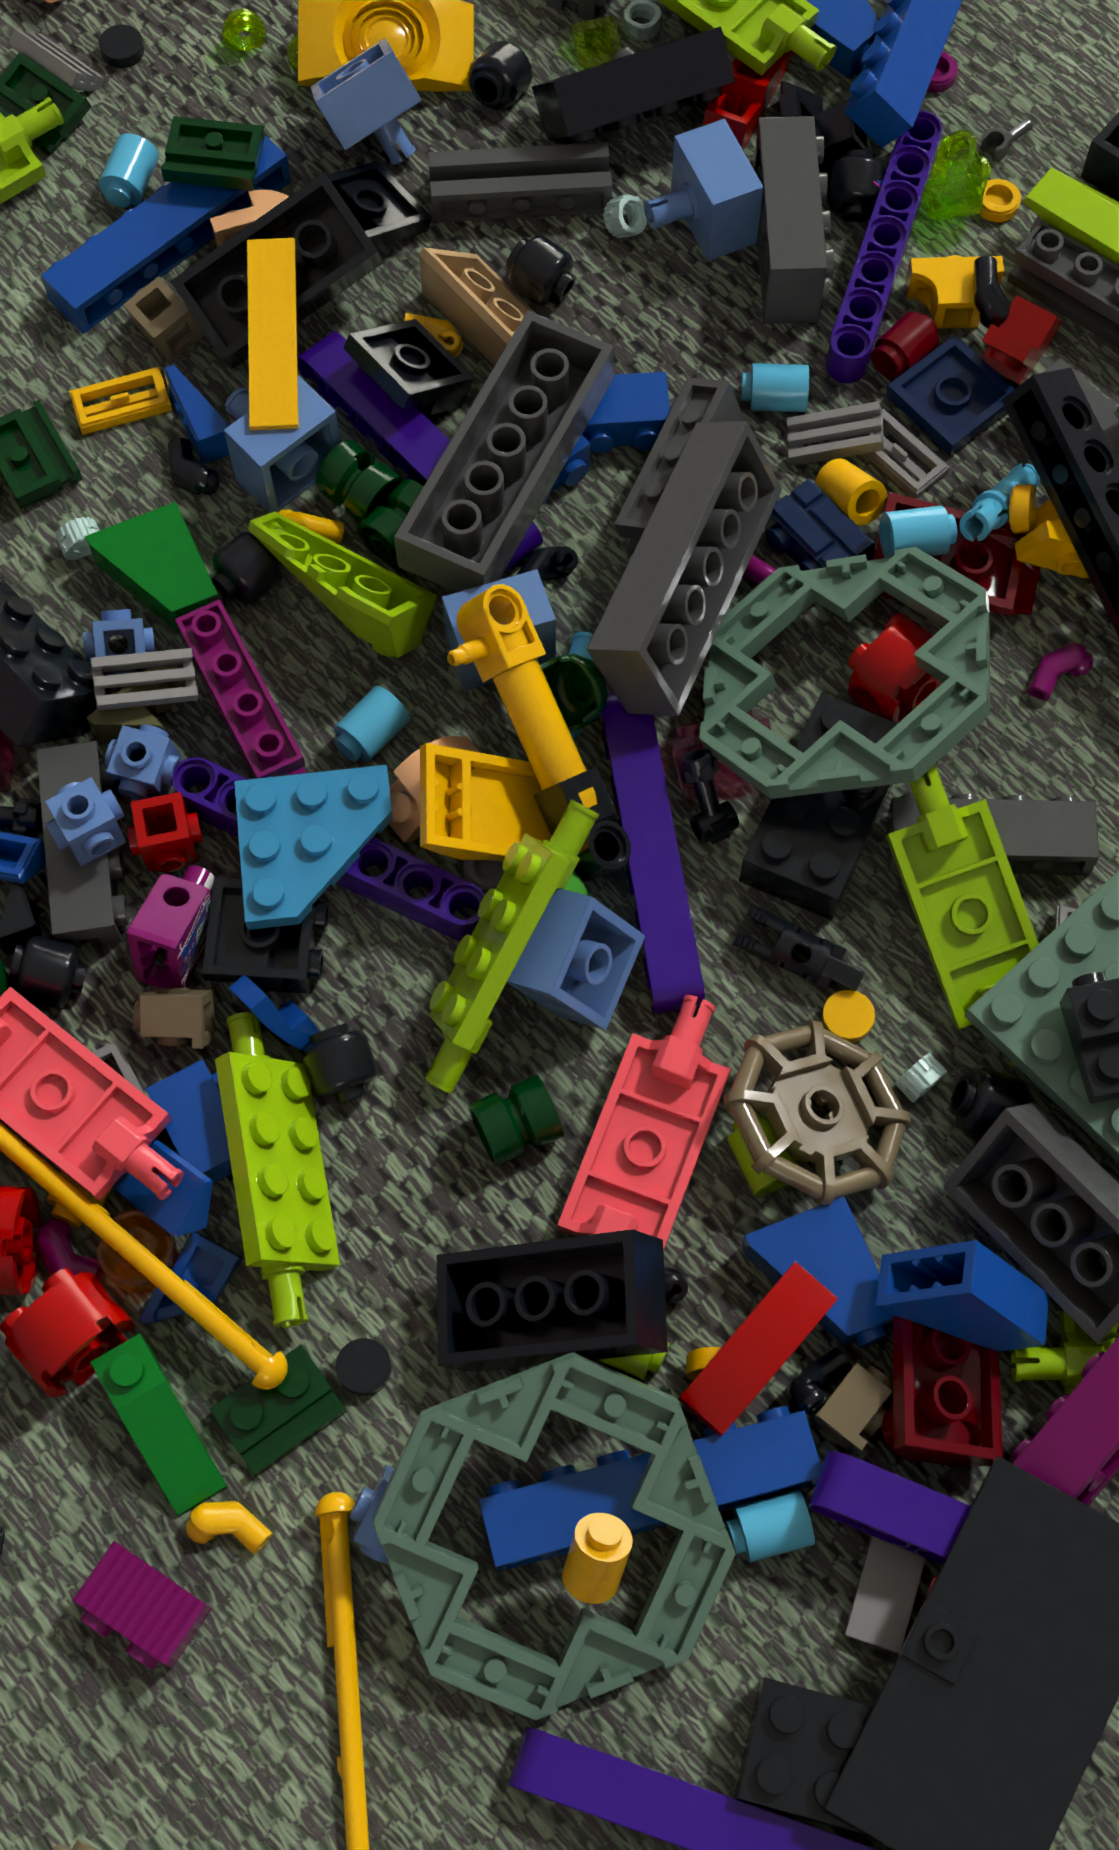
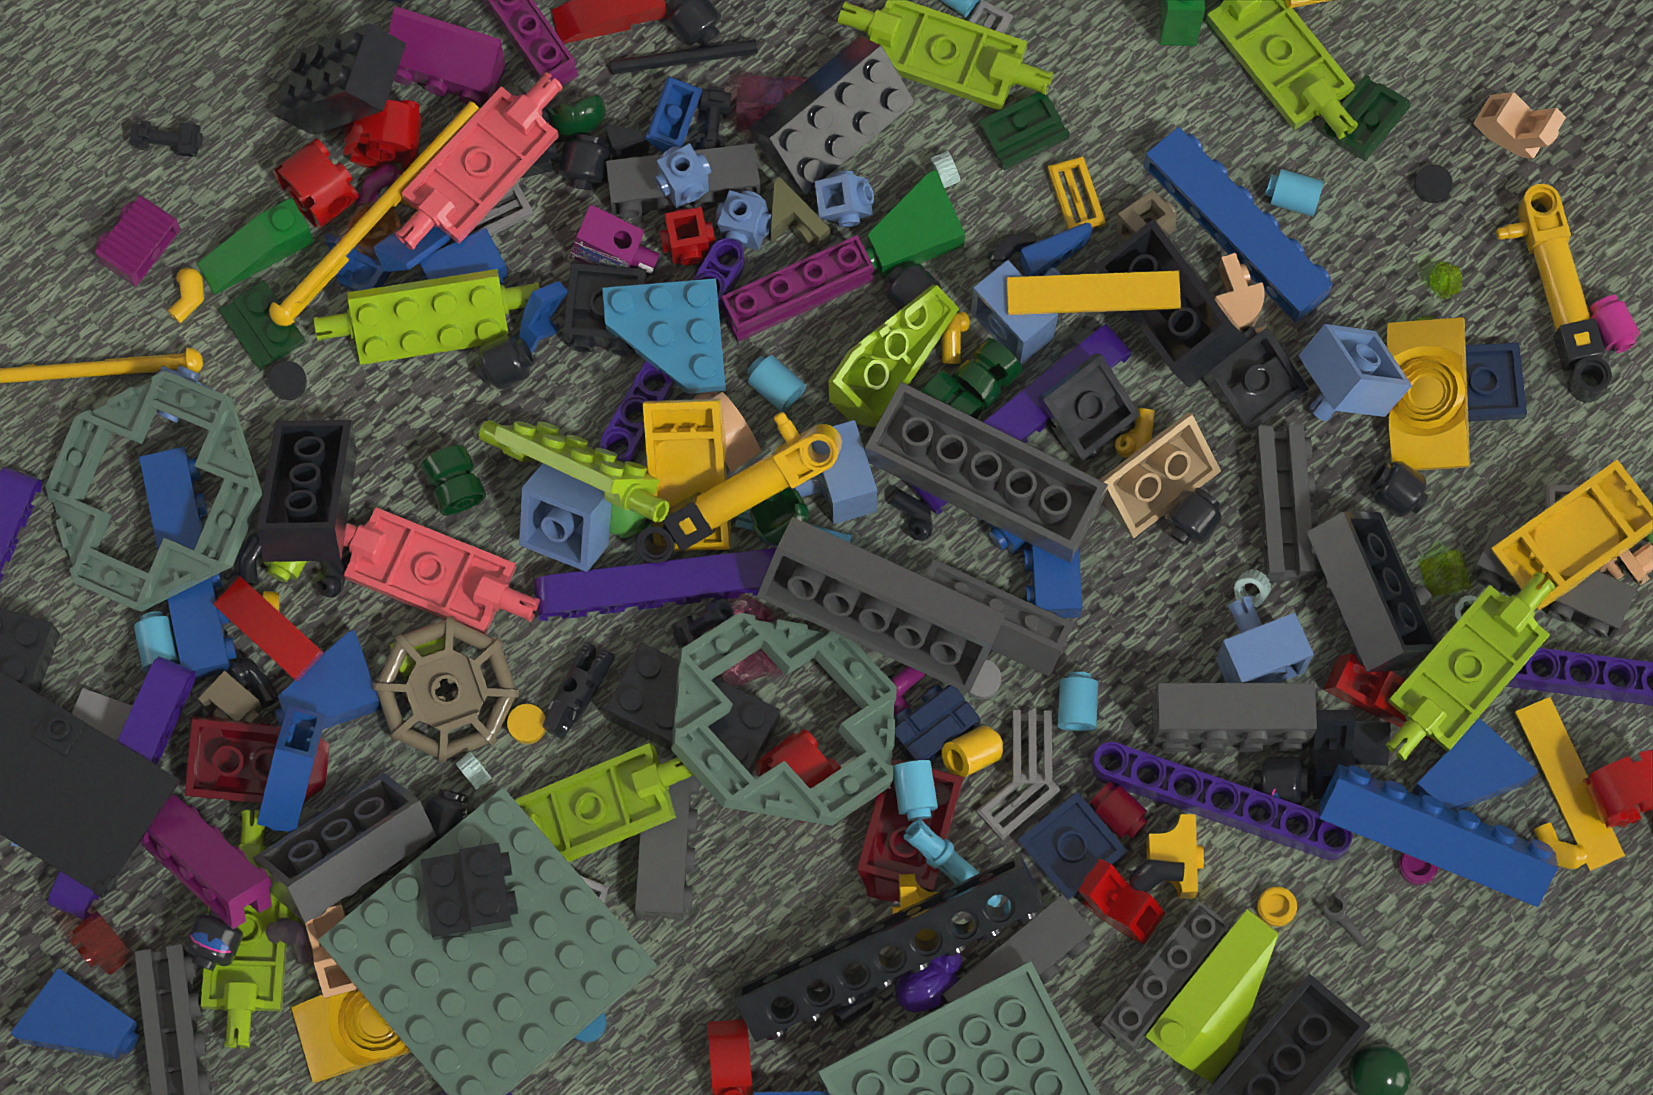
camera: 90 degrees right, 5 degrees up
(56, 60) = (1413, 135): light grey tile -> none
(140, 661) = (799, 183): light grey tile -> none
(176, 1015) = (545, 250): dark tan brick -> none
(213, 153) = (1290, 251): dark green plate -> none
(597, 1558) = (131, 512): yellow brick -> none
(956, 178) = (1284, 866): clear neon green piece -> none
(1022, 508) = (937, 876): yellow tile -> none
(1056, 663) = (817, 908): magenta arm -> none

